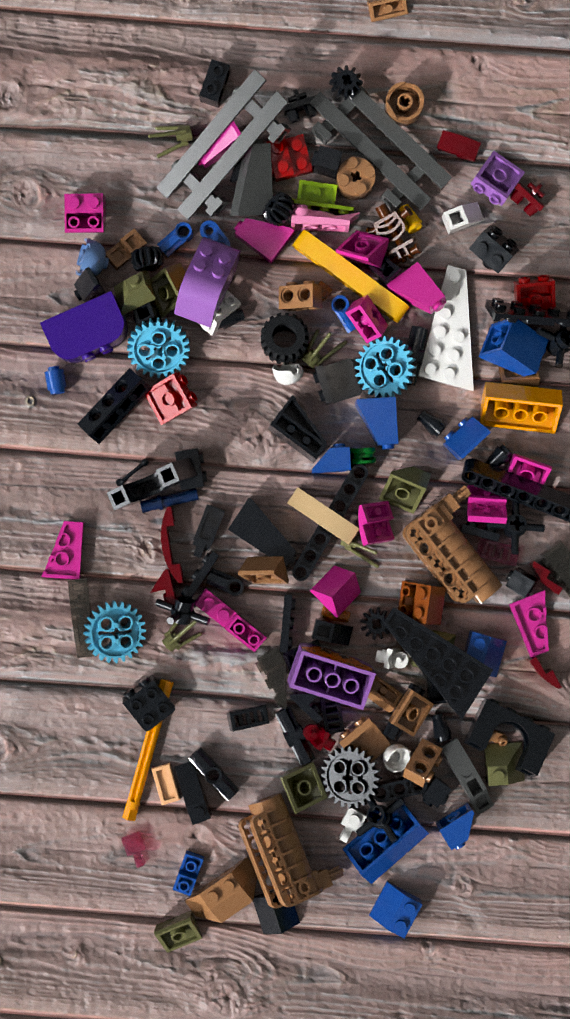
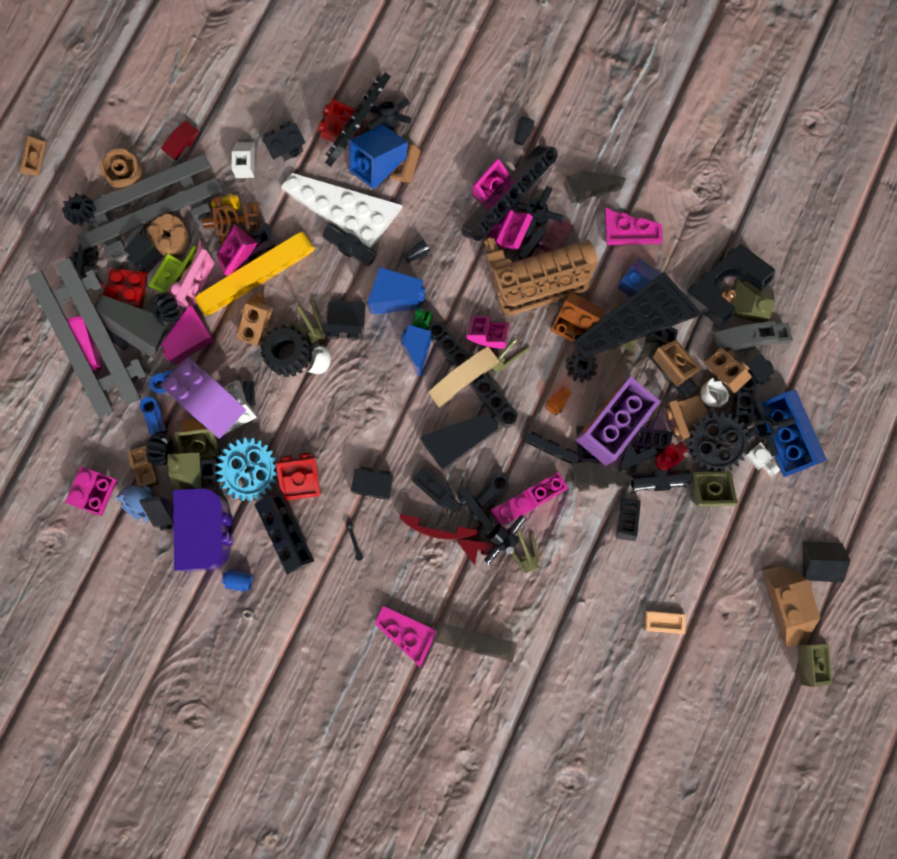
camera: 75 degrees left, 10 degrees down
(114, 648) = (516, 621): medium azure gear -> none
(133, 846) = (715, 676): clear pink plate -> none
(144, 762) = (626, 627): light orange piece -> none
(148, 703) = (581, 608): black bracket -> none
(164, 478) = (373, 531): black arch -> none
(165, 501) = (394, 515): dark blue pin -> none
(182, 133) = (60, 375): olive plant -> none
(188, 873) = (760, 633): blue slope -> none
(193, 793) = (683, 598): black slope -> none
(215, 83) = (28, 328): black brick -> none
(222, 783) = (683, 567): black piece -> none
(264, 570) = (494, 448): medium nougat slope -> none
(282, 855) = (773, 532): medium nougat piece -> none
(298, 431) = (376, 370): black wedge -> none
(331, 632) = (574, 410): black slope -> none
(337, 589) = (537, 389): dark pink slope -> none
(344, 319) = (288, 289): blue piece -> none
(366, 319) = (298, 270): dark pink brick -> none
(371, 377) = (346, 255): medium azure gear -> none
(384, 694) = (654, 382): medium nougat slope -> none
(392, 658) = (620, 362): white hips -> none
(396, 909) = (859, 447): blue slope -> none
(405, 488) = (467, 294): olive slope -> none
(418, 289) = (291, 217): dark pink slope -> none
(440, 728) = (700, 344): black cone -> none
(456, 826) = (798, 360): blue slope -> none
(466, 437) = (441, 224): blue slope -> none
(497, 178) = (223, 118): medium lavender plate -> none
(499, 456) = (469, 203): black cone -> none
(521, 407) = (433, 170): light orange slope -> none
(521, 582) = (590, 224): black brick -> none
(522, 192) = (244, 101): dark red hips -> none
(542, 574) = (590, 205): dark red slope -> none
(548, 675) = (684, 233): dark red slope -> none

